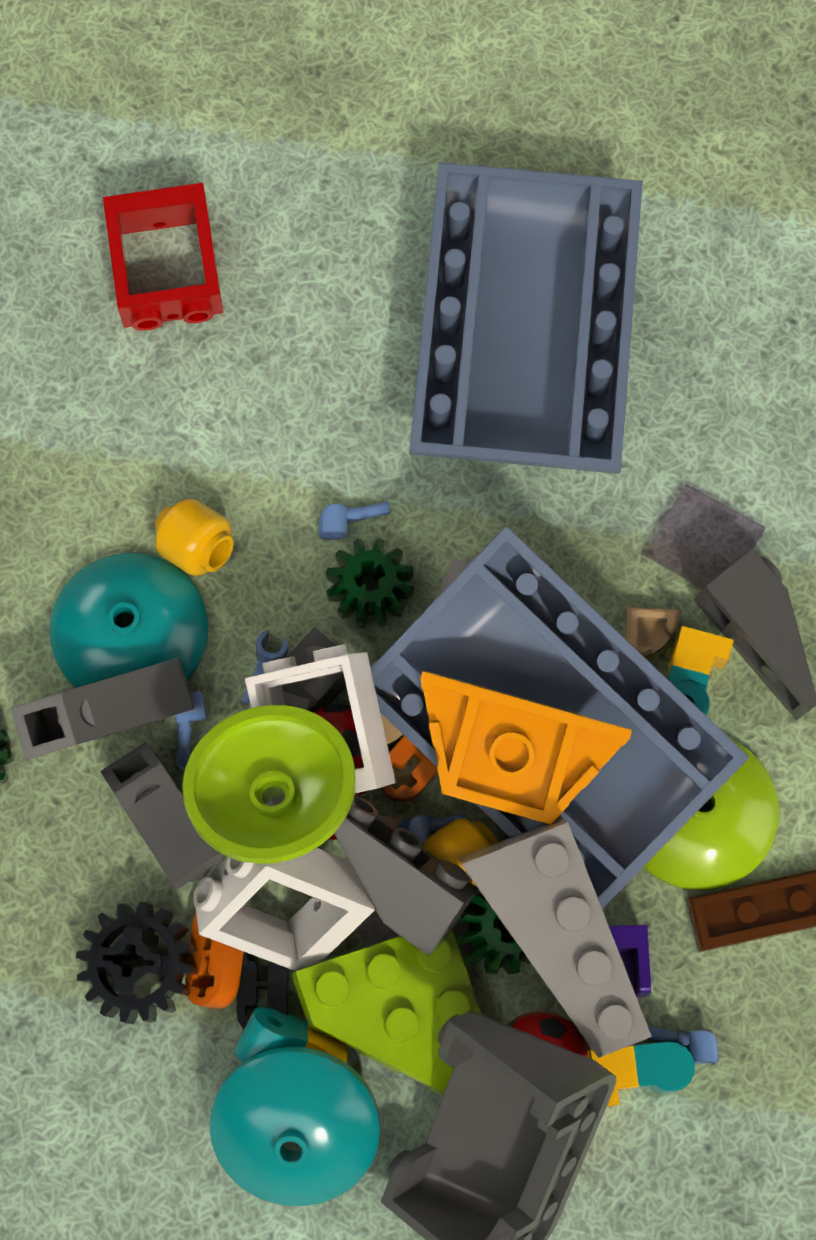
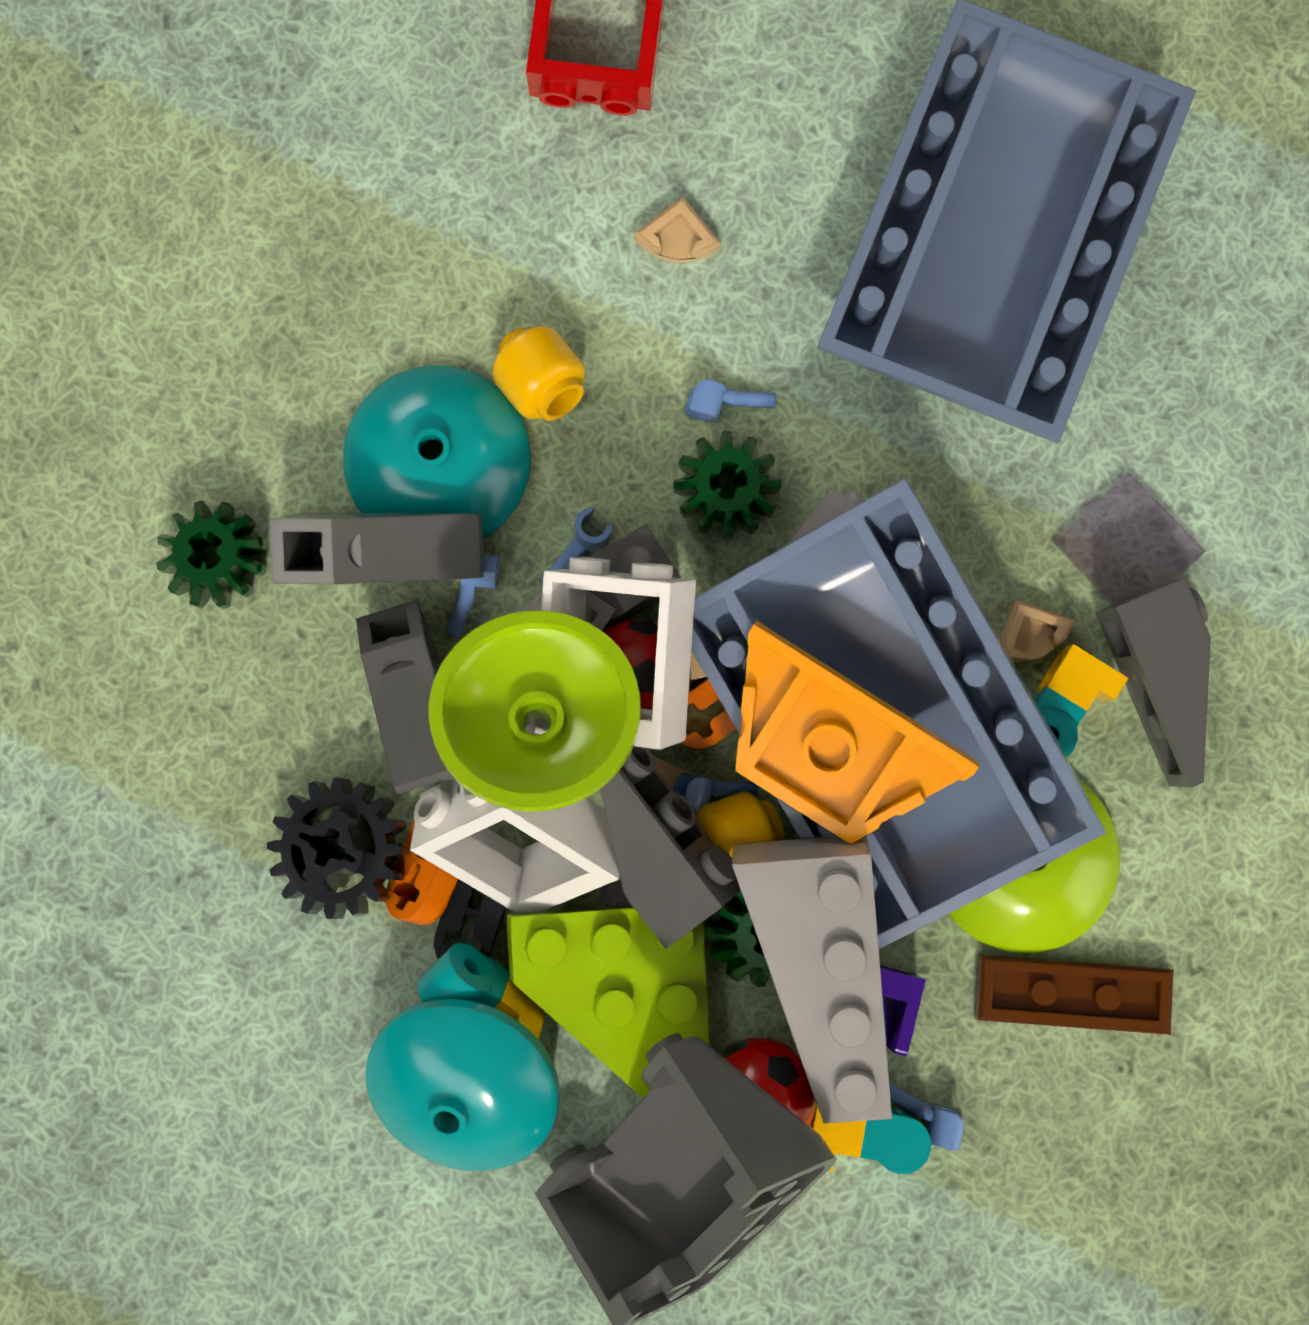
camera: 15 degrees right, 10 degrees up
(273, 401) = (678, 235): none -> tan tile

